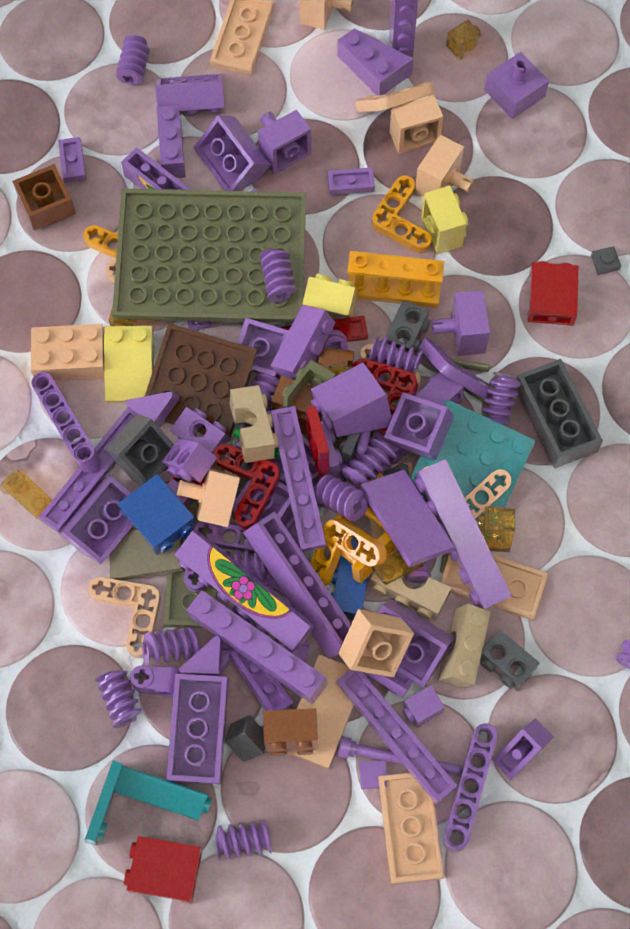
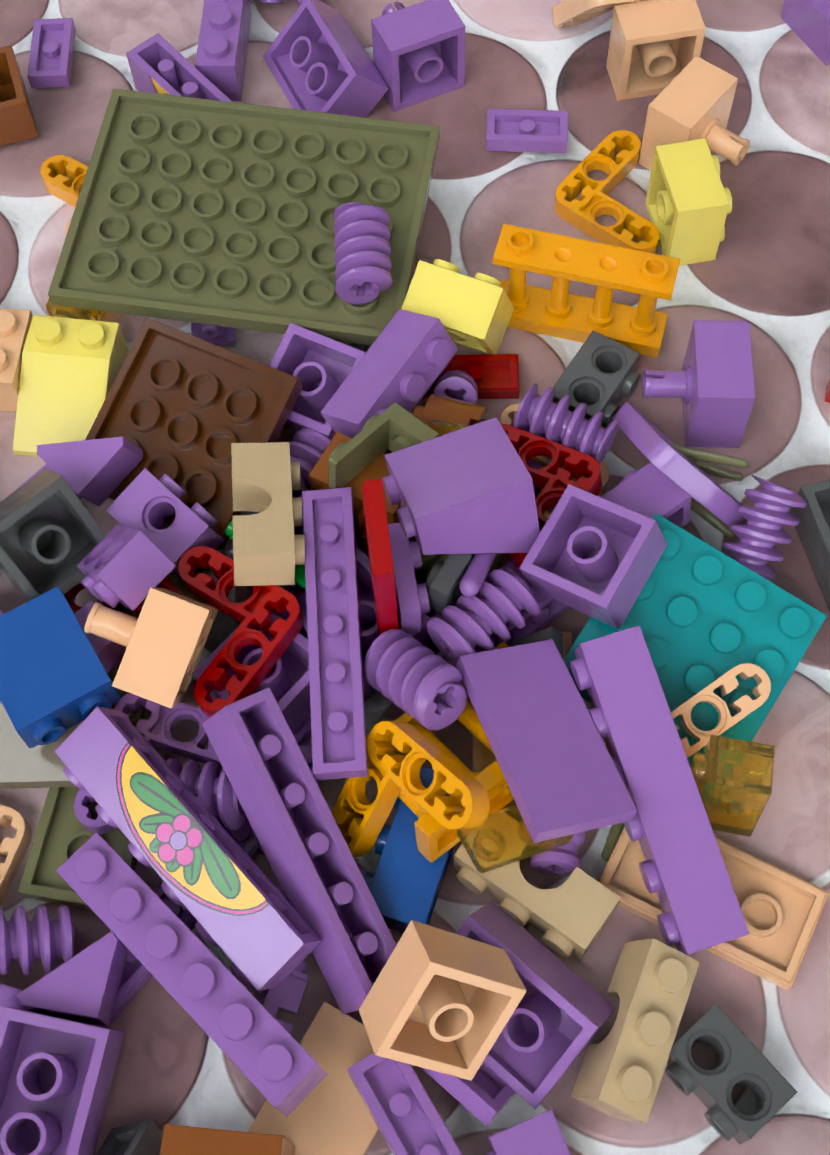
camera: 10 degrees right, 5 degrees down
(264, 686) = (200, 1067): medium lavender plate -> none

